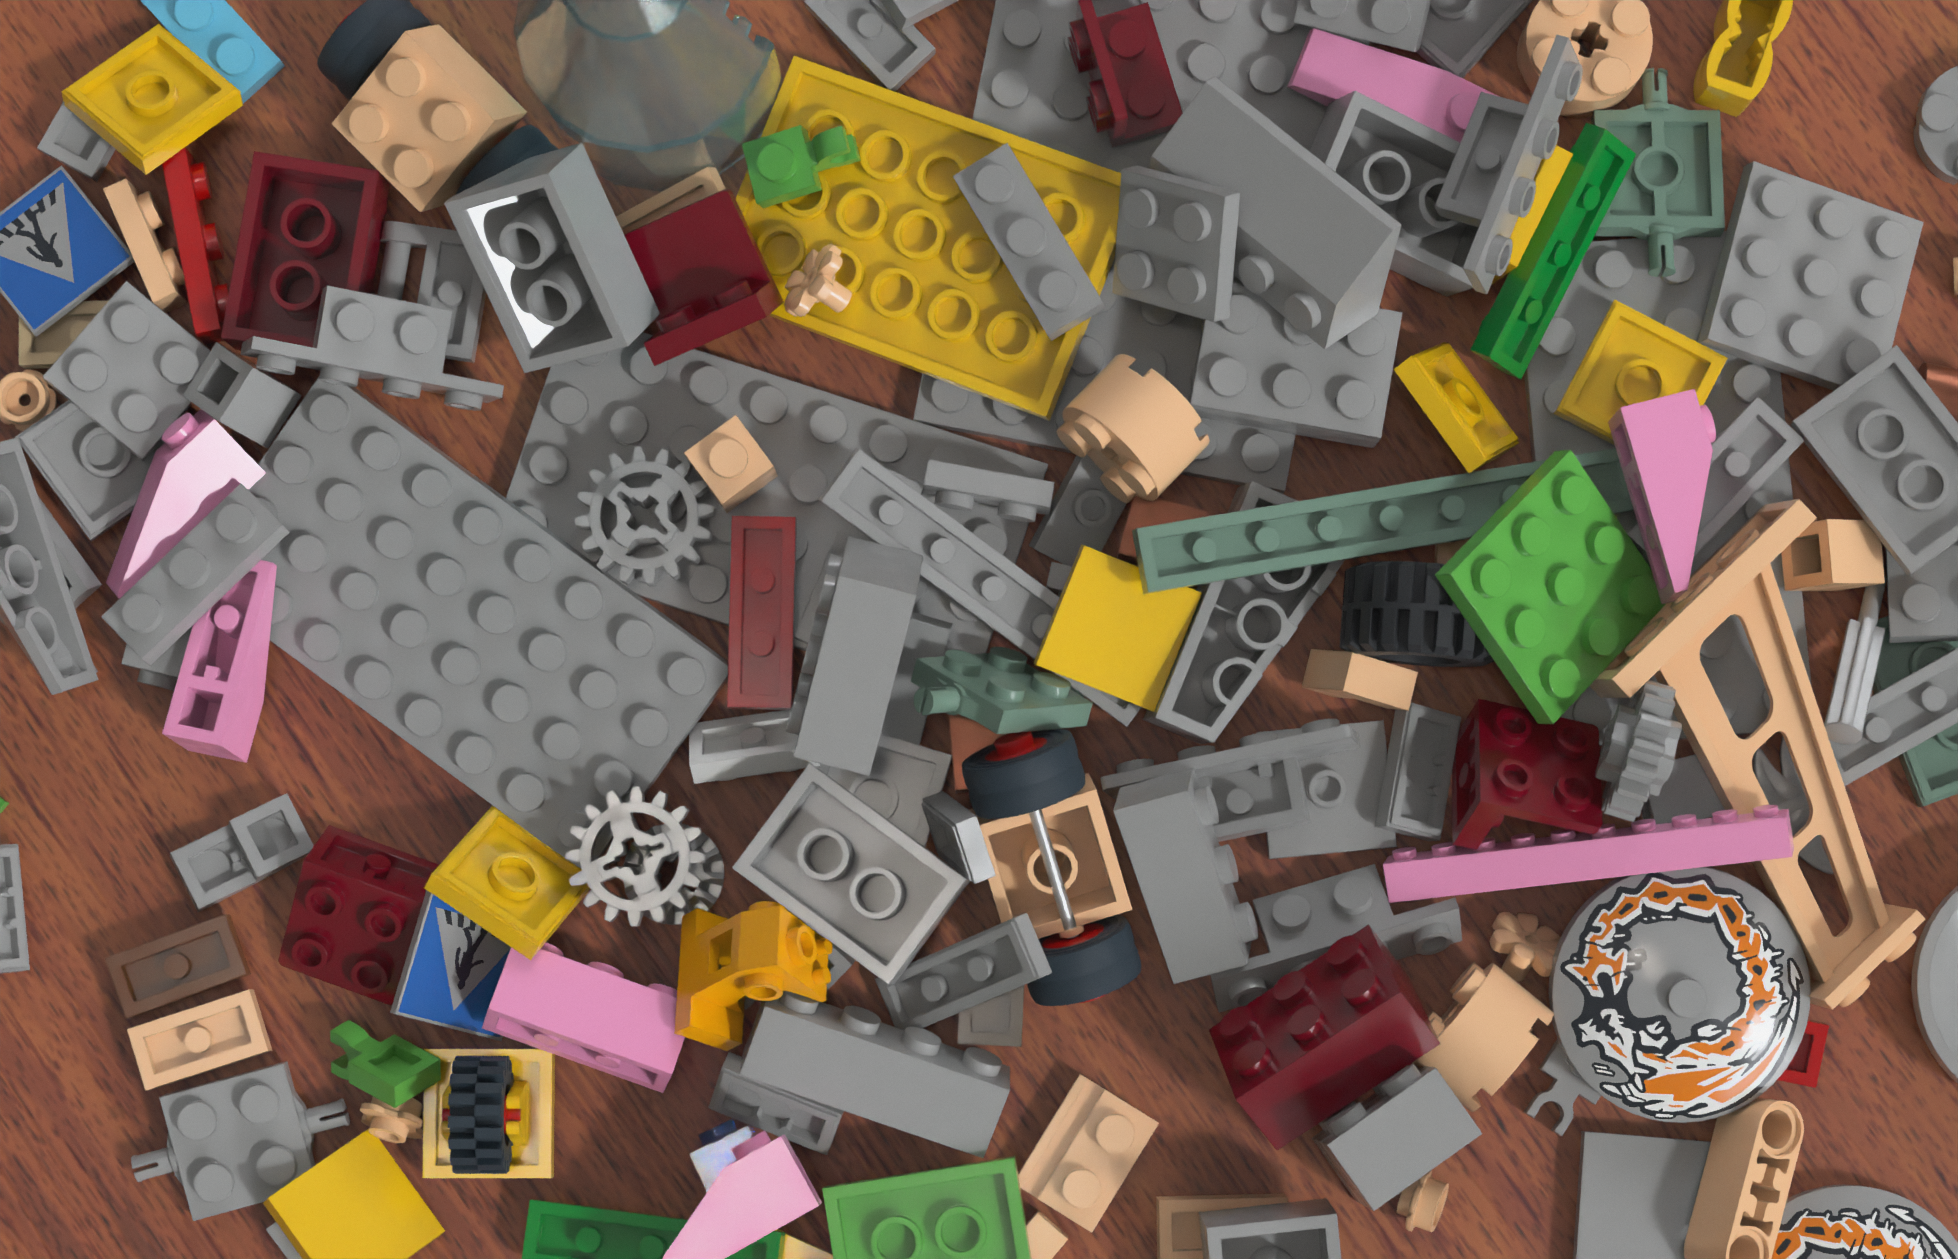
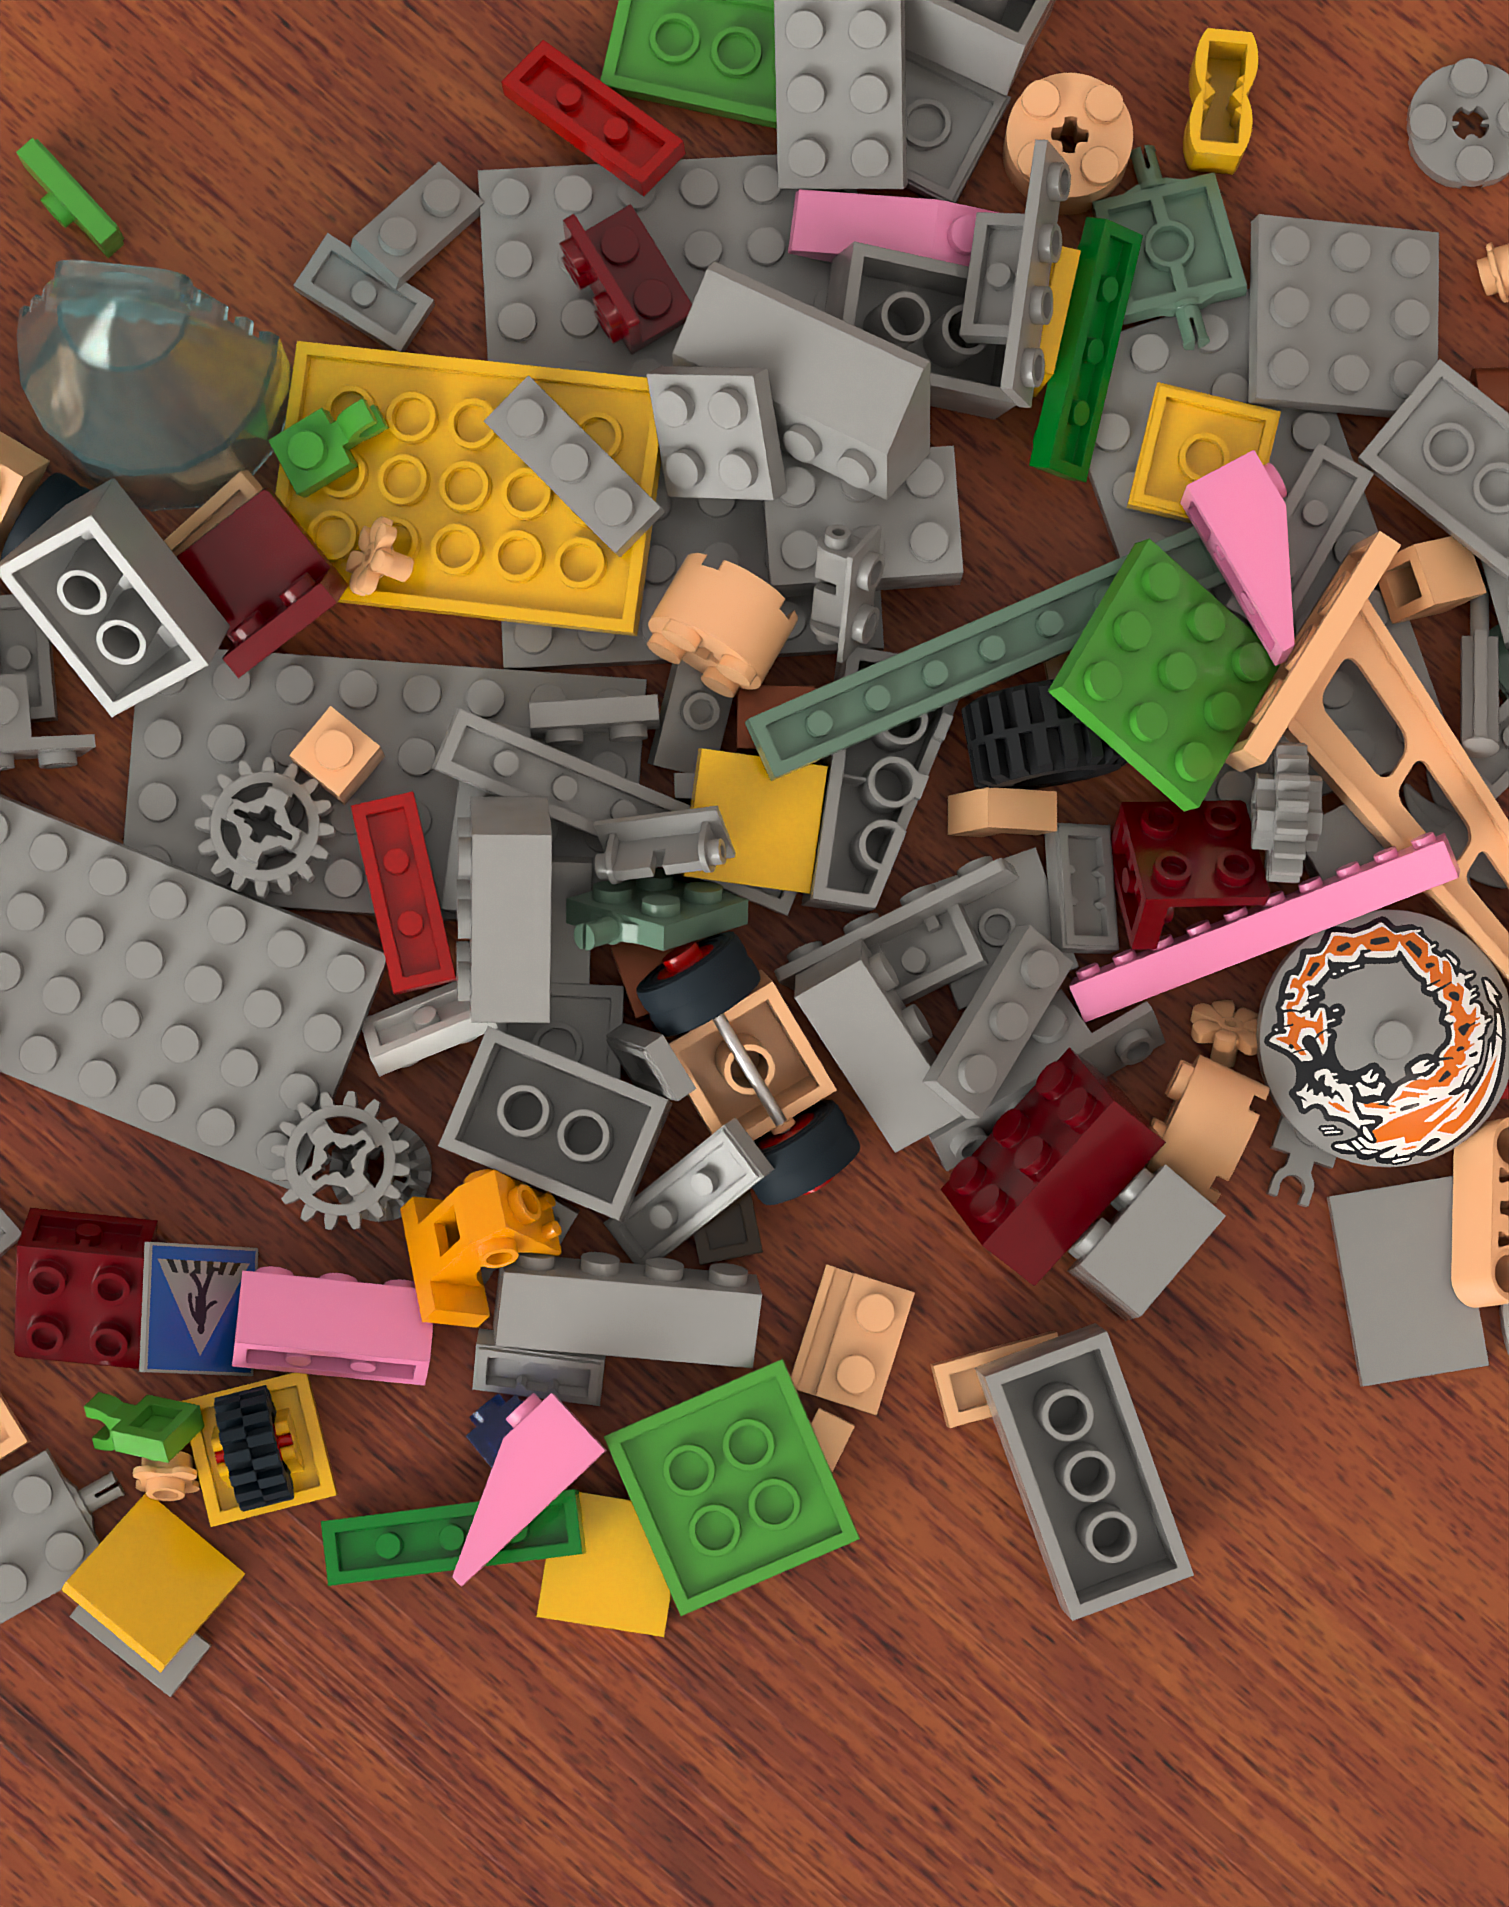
camera: 20 degrees left, 0 degrees up
(508, 883) = (222, 1218): yellow tile -> none
(1035, 628) = (673, 839): none -> light grey hinge
(1258, 446) = (846, 611): none -> light grey hinge
(1305, 882) = (998, 1022): none -> light grey plate
(1423, 1203) = (1189, 1304): light nougat plate -> none
(1457, 406) = (1030, 523): yellow tile -> none

